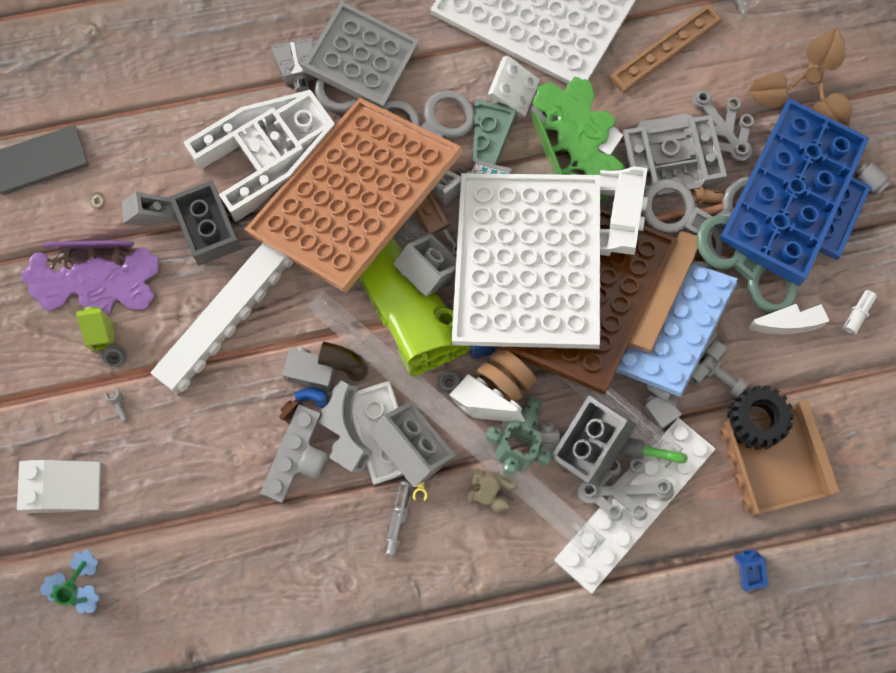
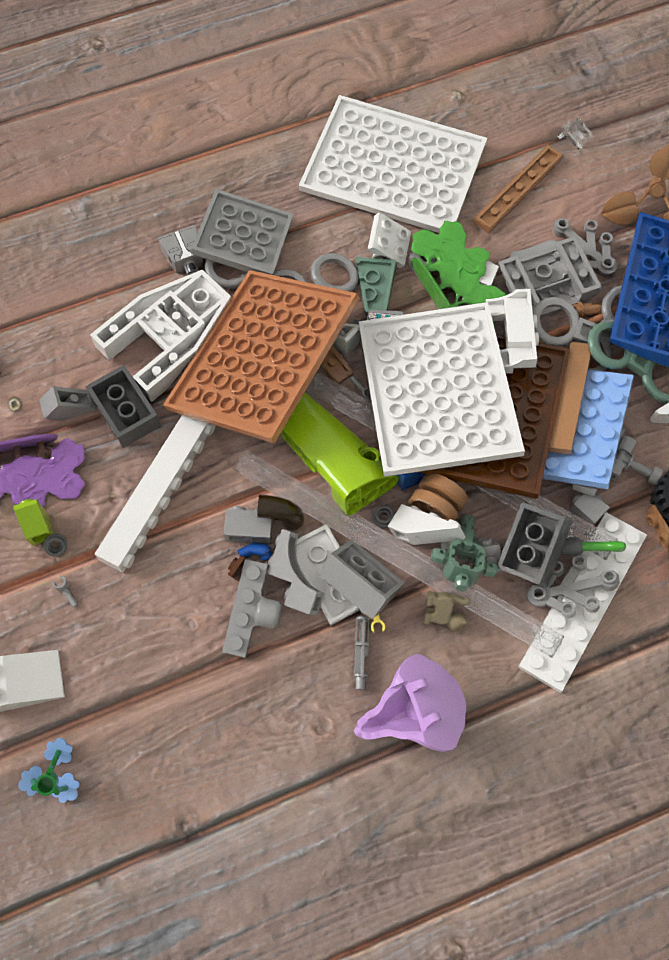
camera: 10 degrees left, 5 degrees down
(427, 264) = (343, 409): light grey brick -> none
(442, 584) = (418, 706): none -> lavender animal

